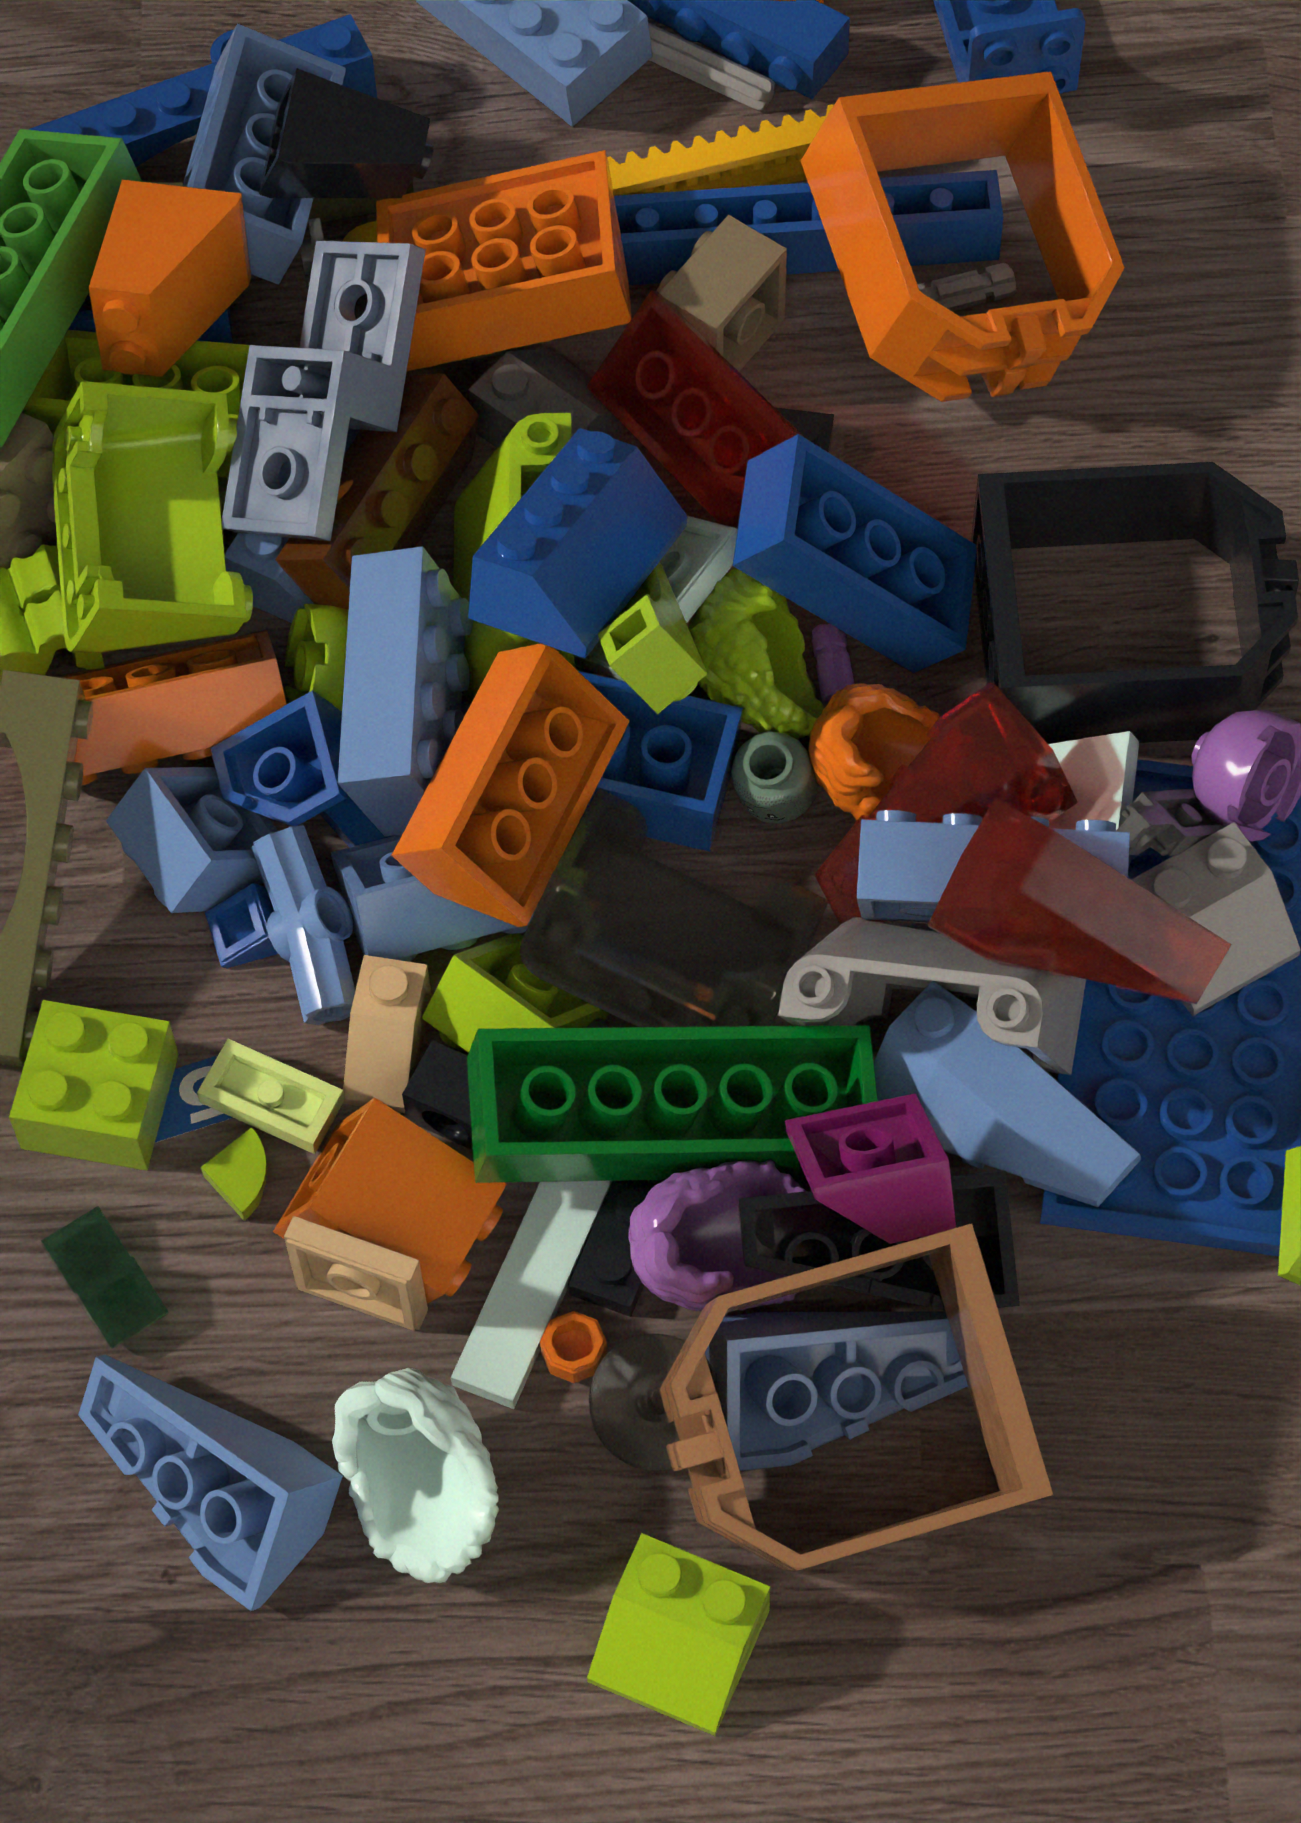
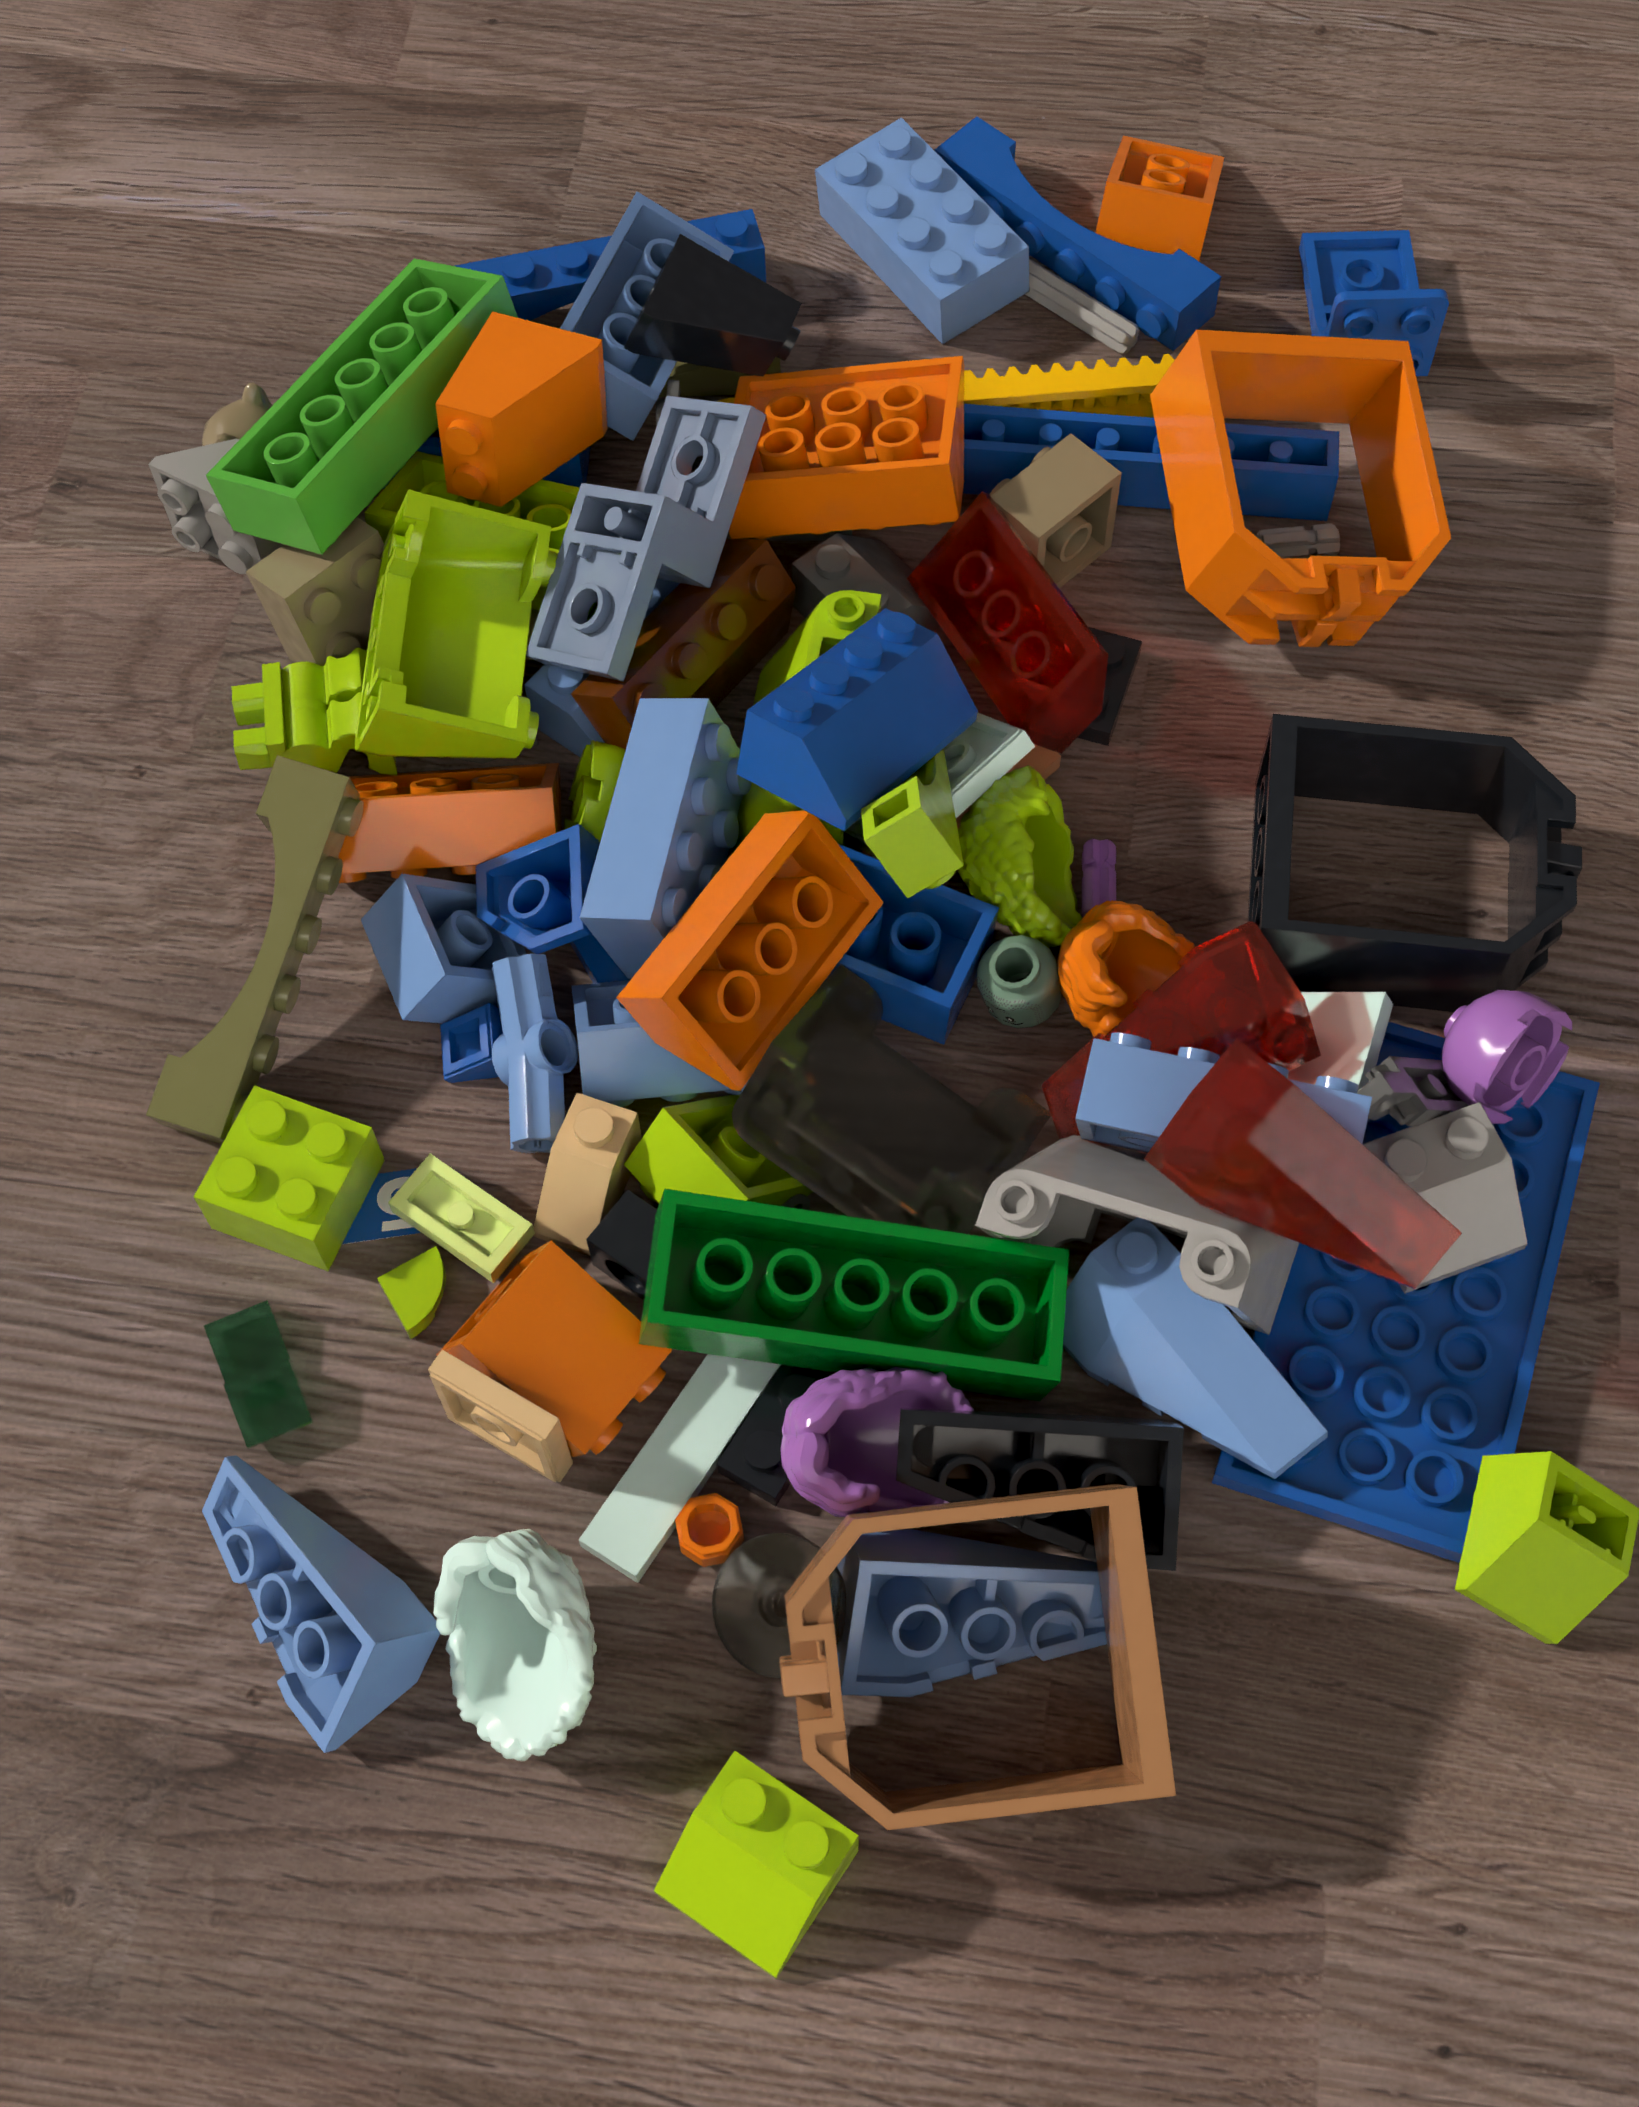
camera: 10 degrees right, 0 degrees up
(855, 554) = (1137, 773): blue brick -> none
(878, 1167) = (1049, 1404): magenta slope -> none

